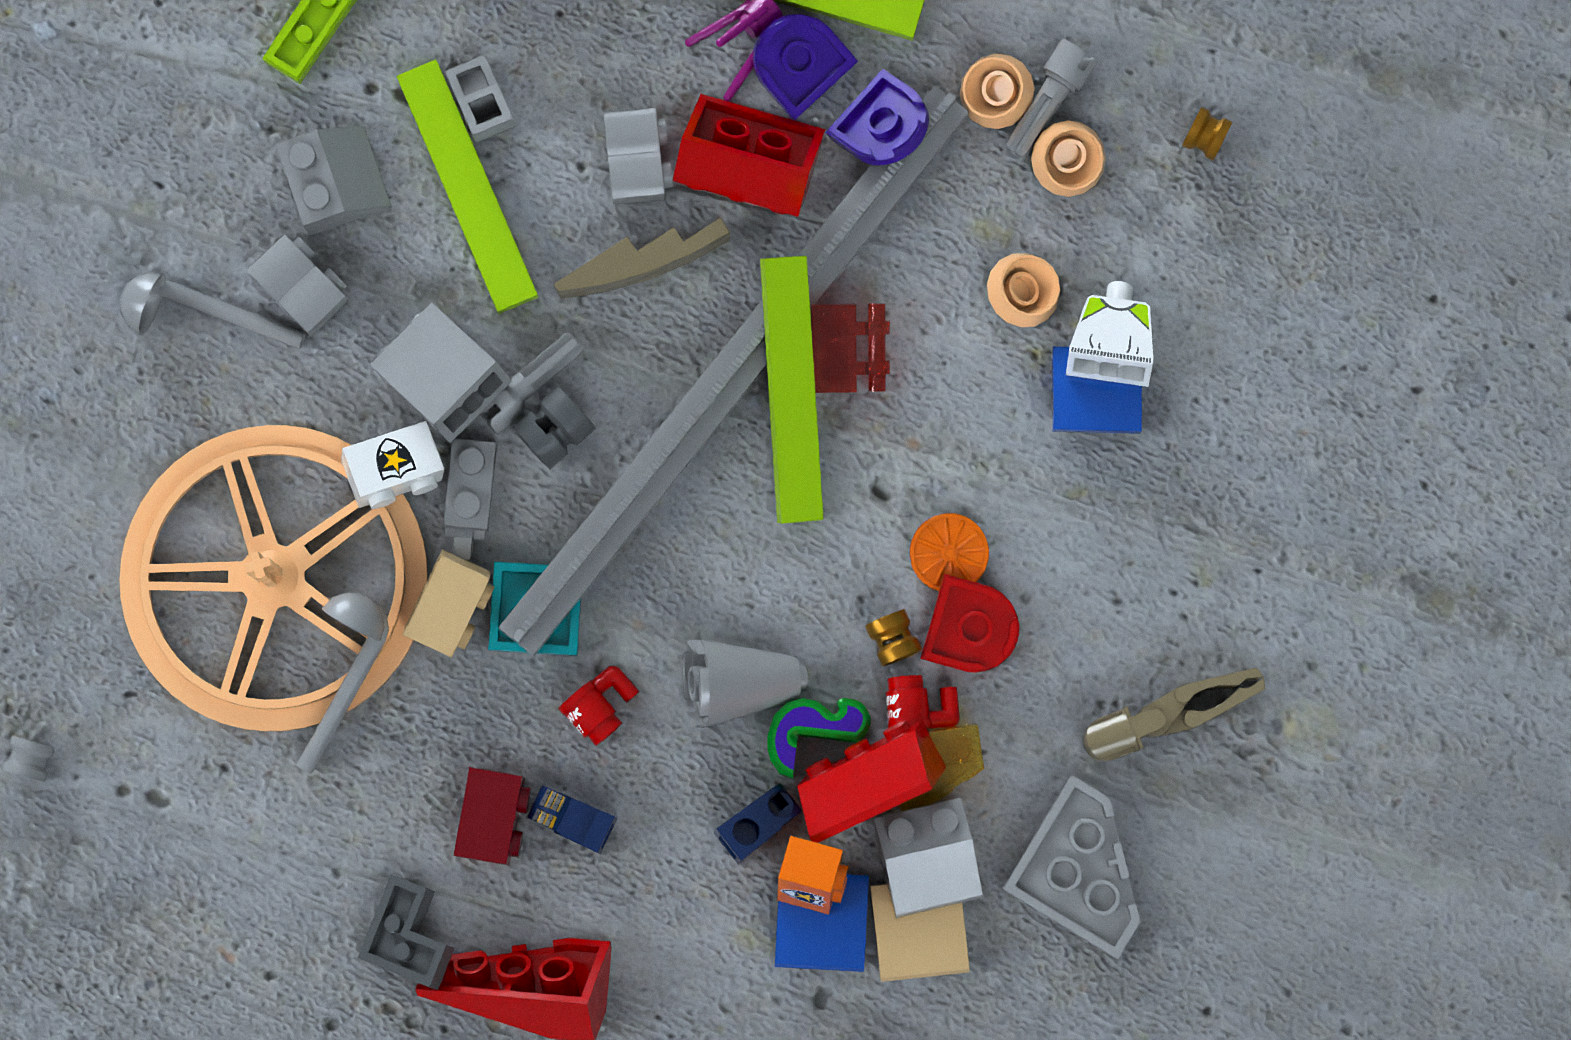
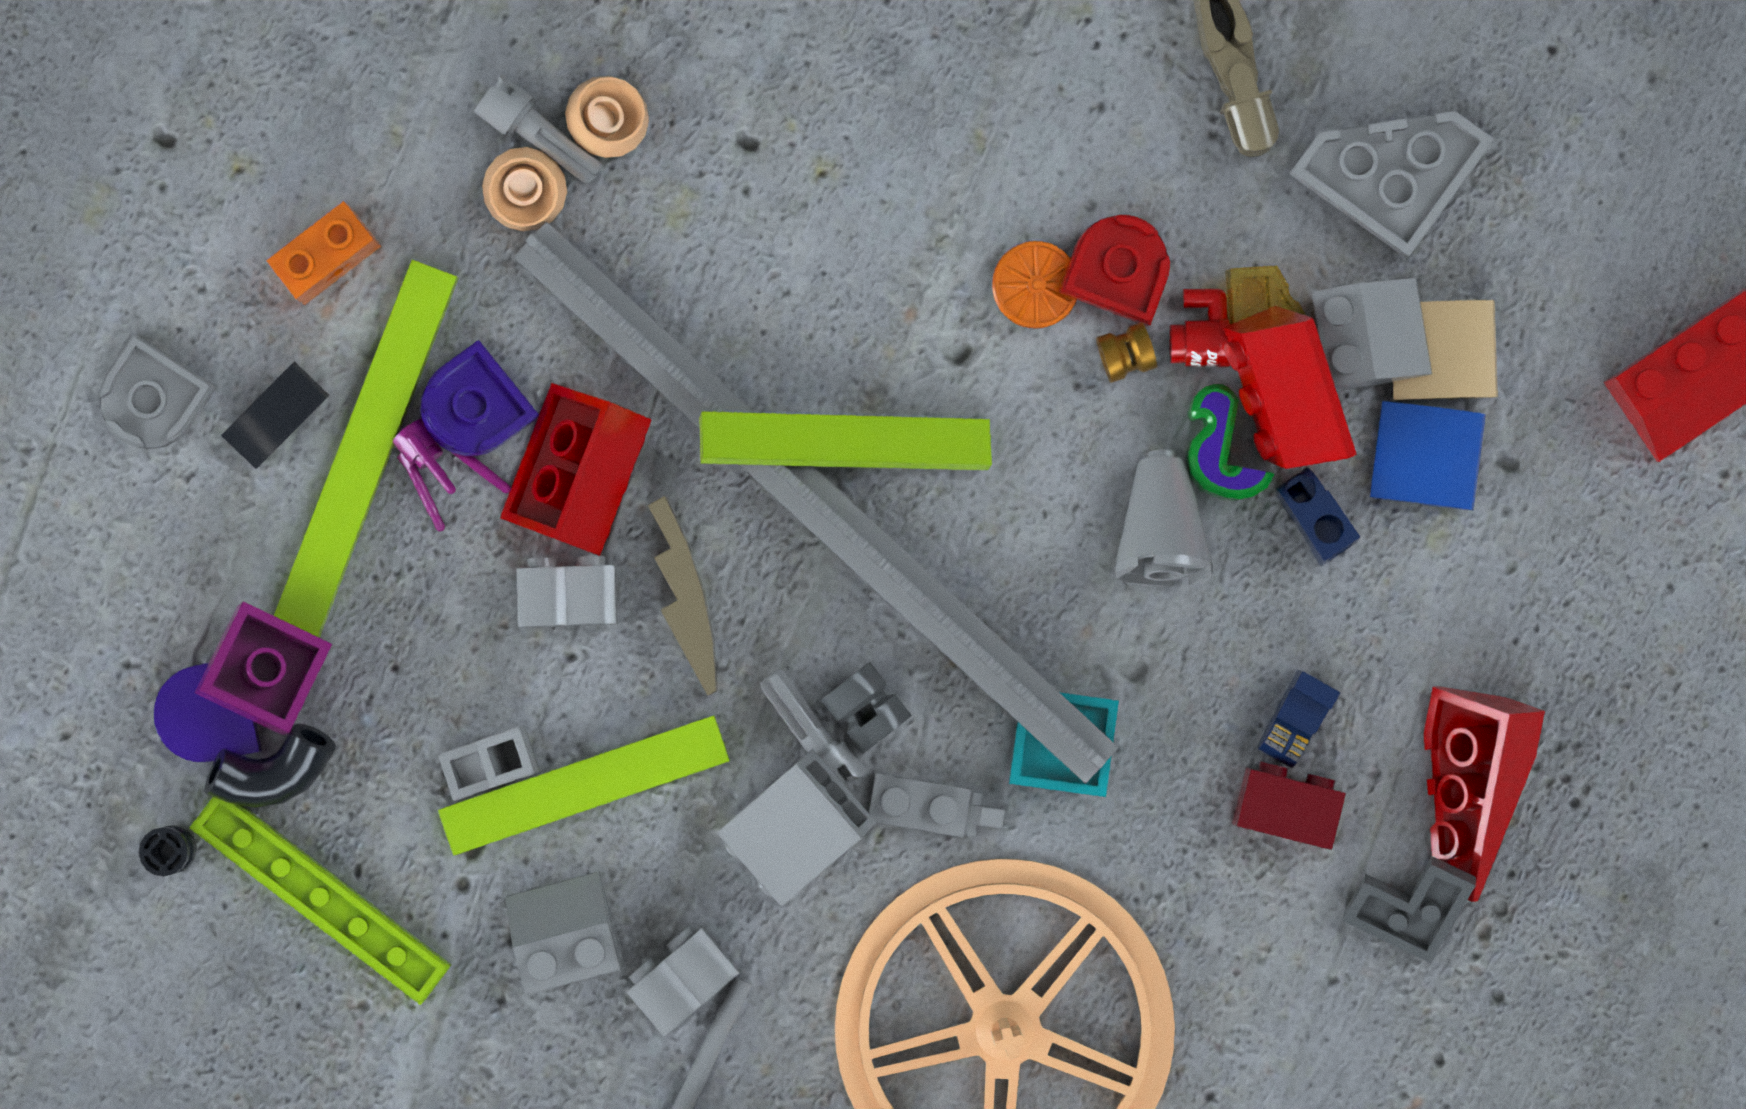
camera: 85 degrees left, 5 degrees up
(369, 619) = (1067, 928): light grey piece -> none
(393, 466) = (895, 888): white brick -> none
(448, 604) = (1053, 837): tan brick -> none
(590, 709) = (1179, 690): red piece -> none
(812, 875) = (1386, 459): orange brick -> none
(834, 347) = (798, 388): clear red plate -> none
(882, 122) = (551, 317): dark purple tile -> none
(1010, 288) = (753, 193): light nougat hat -> none
(1091, 403) = (868, 107): blue slope -> none
(1113, 338) = (816, 82): white torso -> none

